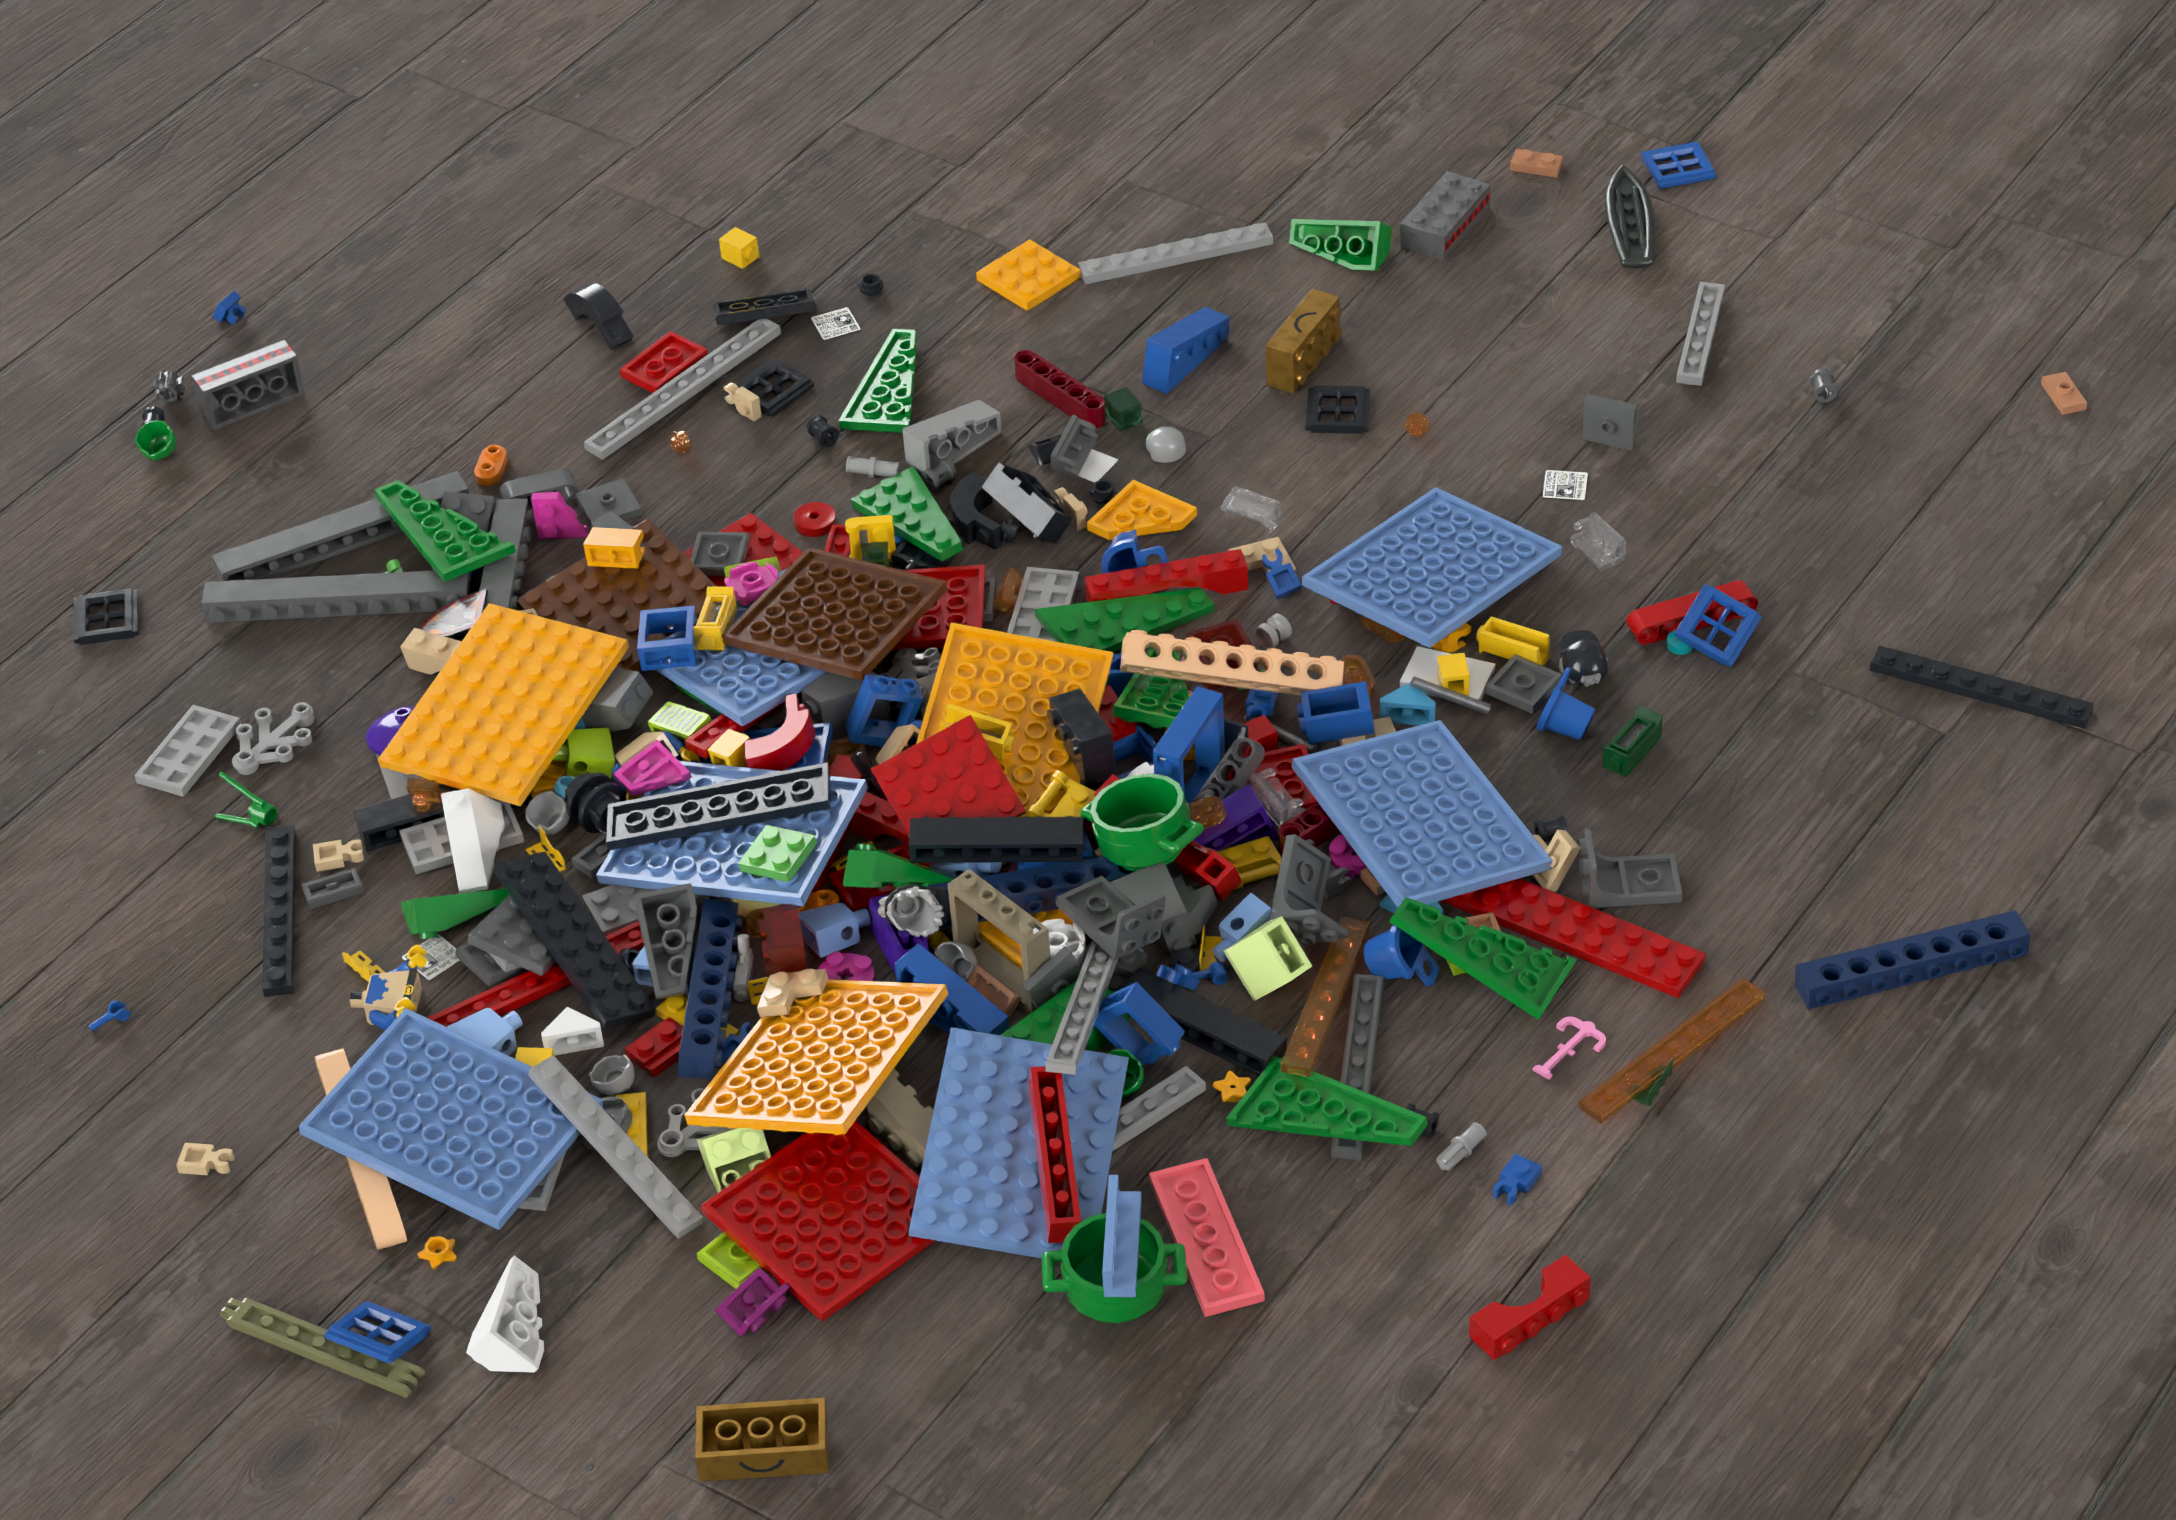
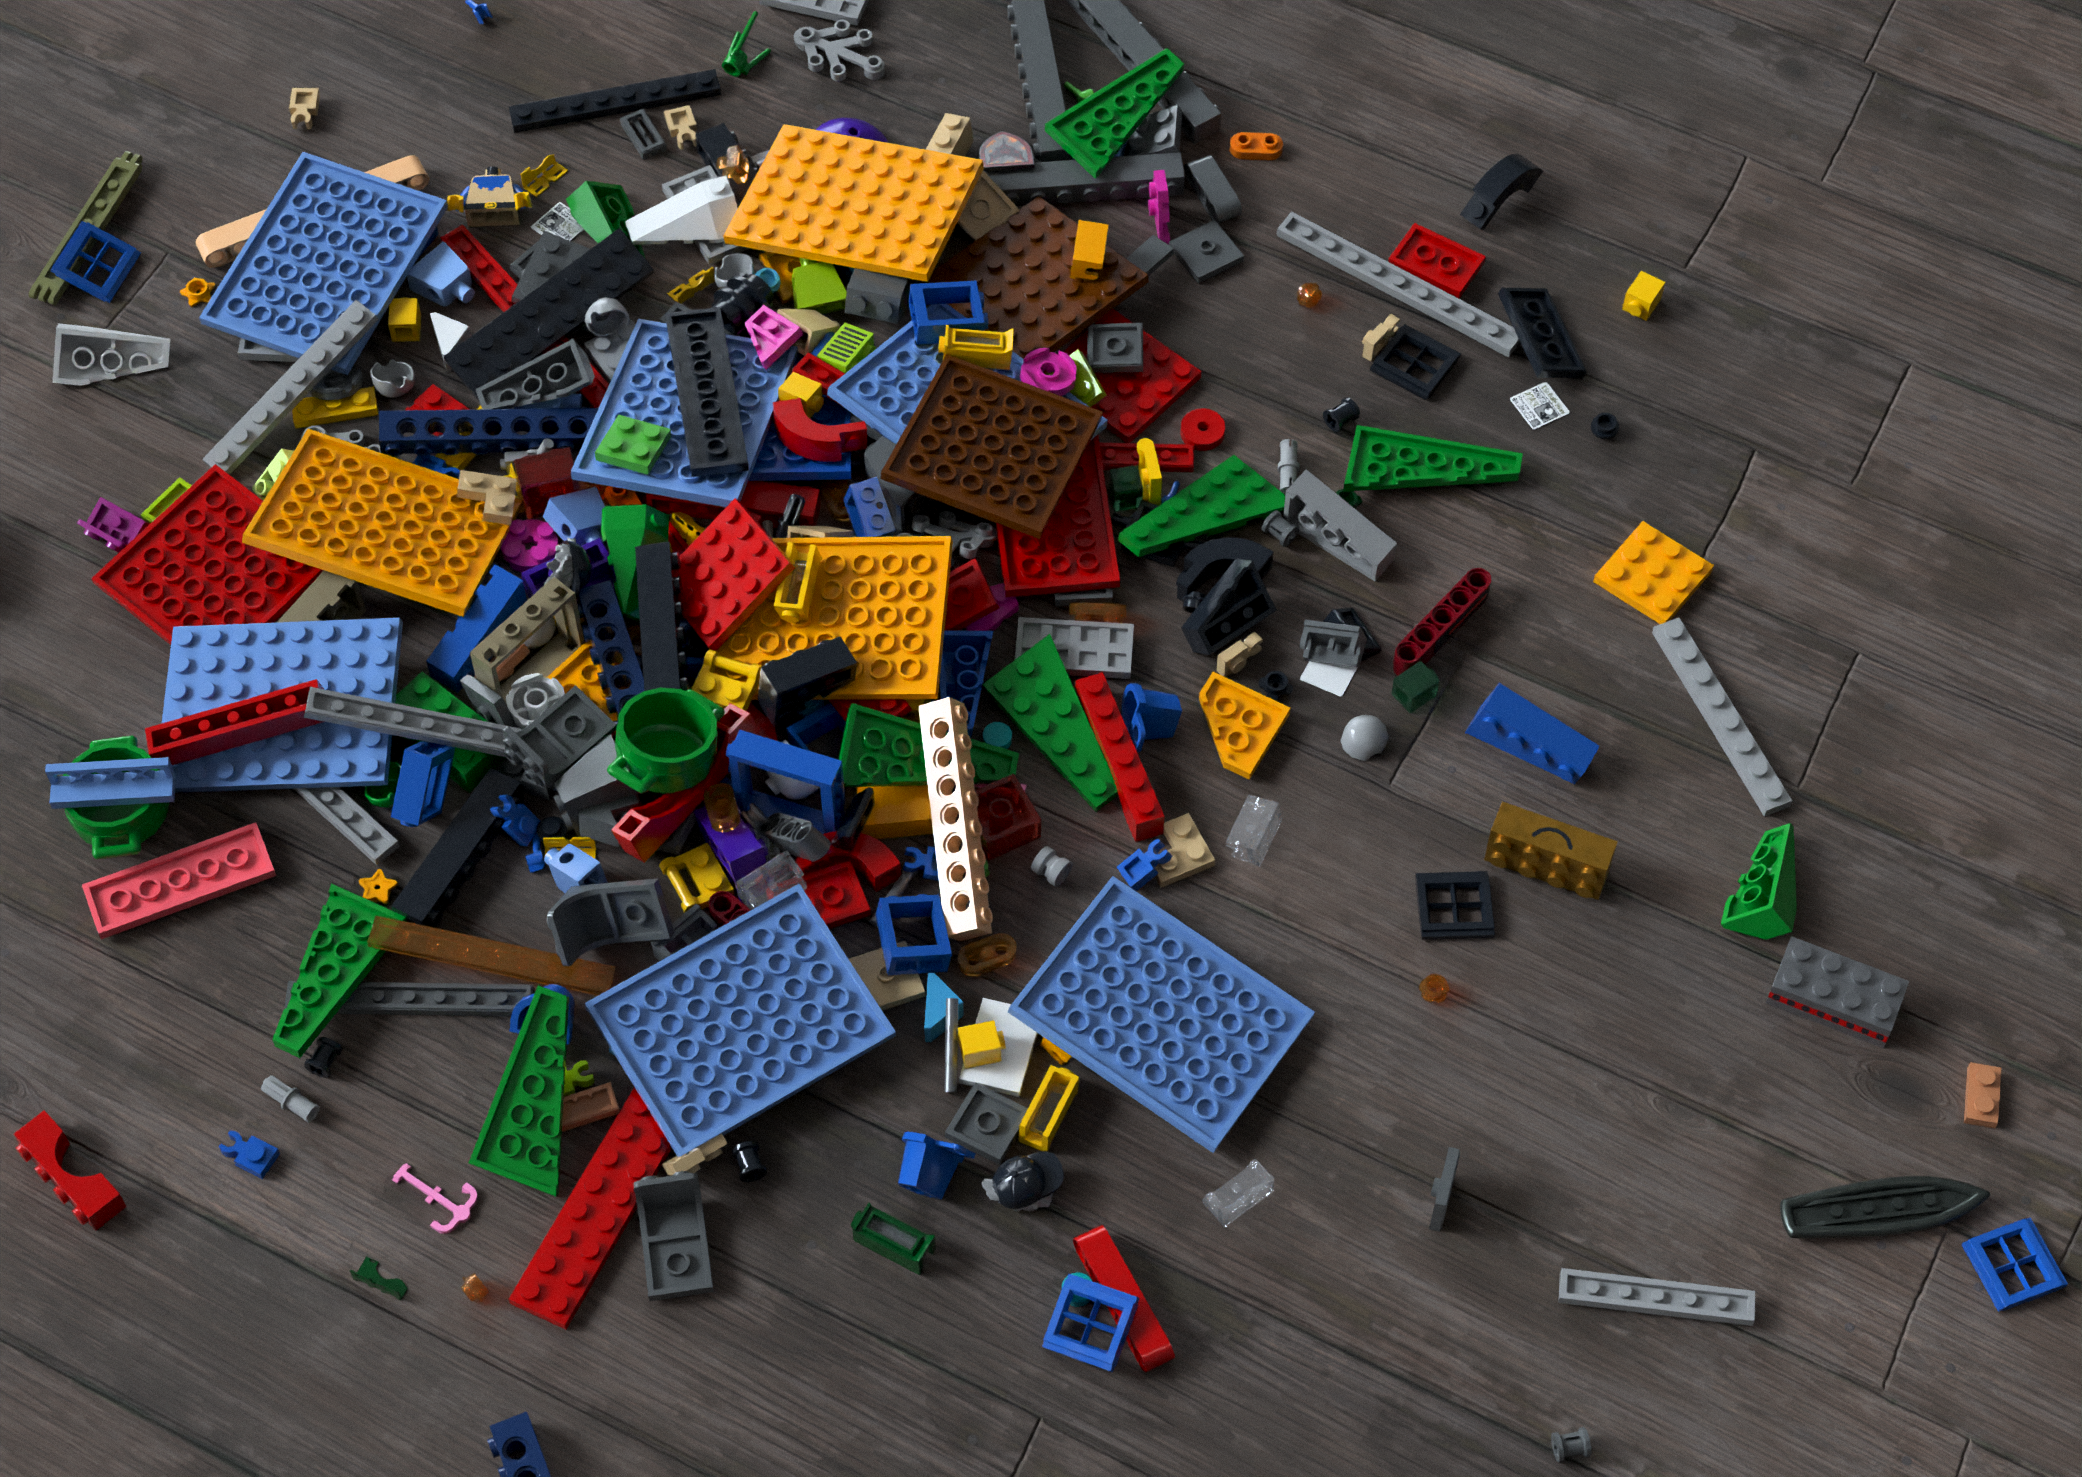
camera: 80 degrees right, 15 degrees up
(584, 892) = (606, 317): none -> light grey hair
(1267, 958) = (532, 895): yellowish green slope -> none
(1565, 485) = (1353, 1156): sticker -> none
(1666, 1013) = (474, 1288): none -> clear orange plate
(1676, 1045) = (429, 1299): clear orange tile -> none

